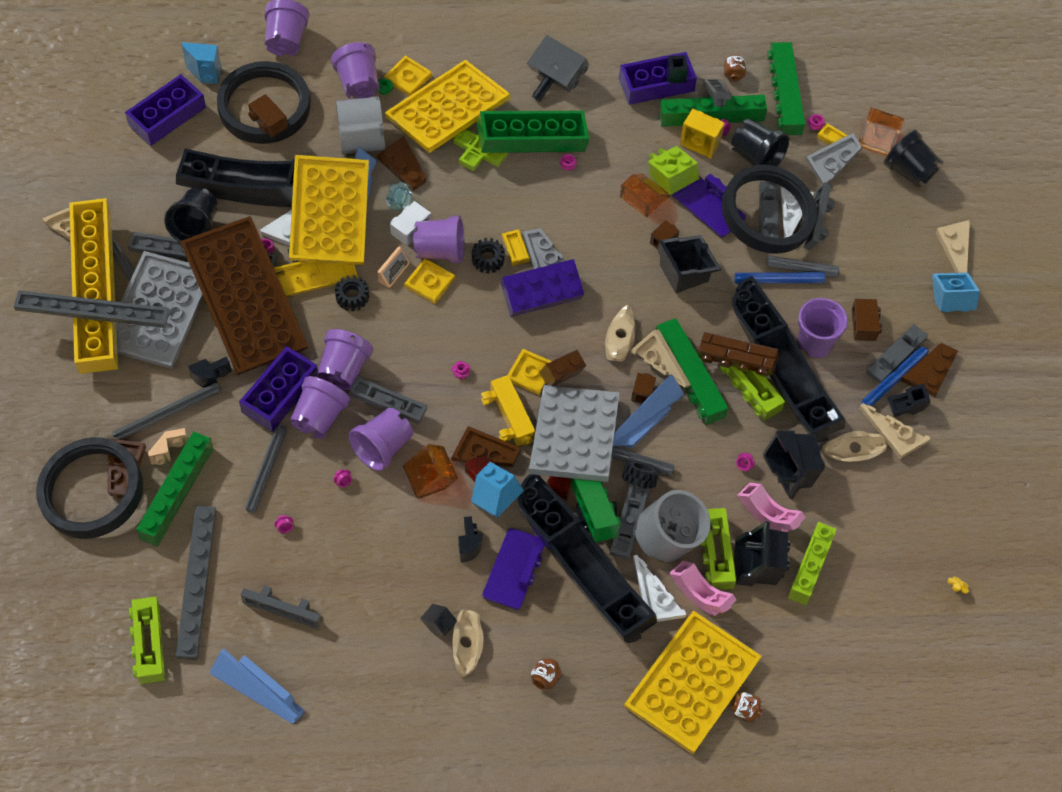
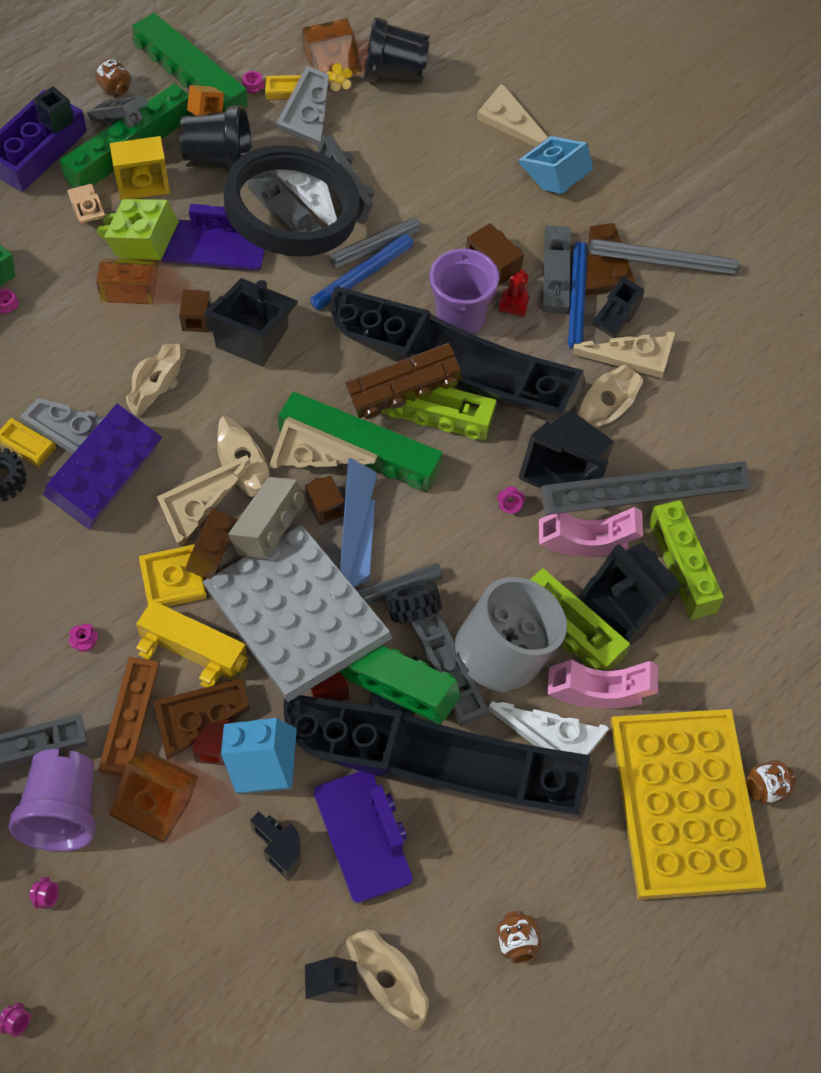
camera: 40 degrees left, 0 degrees up
(452, 423) = (129, 715): none -> dark orange plate
(569, 338) = (191, 503): none -> tan wing
(603, 375) = (267, 517): none -> dark tan brick
(618, 256) = (164, 364): none -> tan piece
(656, 135) = (86, 204): none -> light nougat slope
(772, 117) = (204, 100): none -> orange brick
(824, 509) = (644, 488): none -> dark grey plate
(855, 350) = (515, 297): none -> red axle
(871, 152) = (339, 78): none -> yellow plant
(967, 391) = (663, 256): none -> dark grey axle

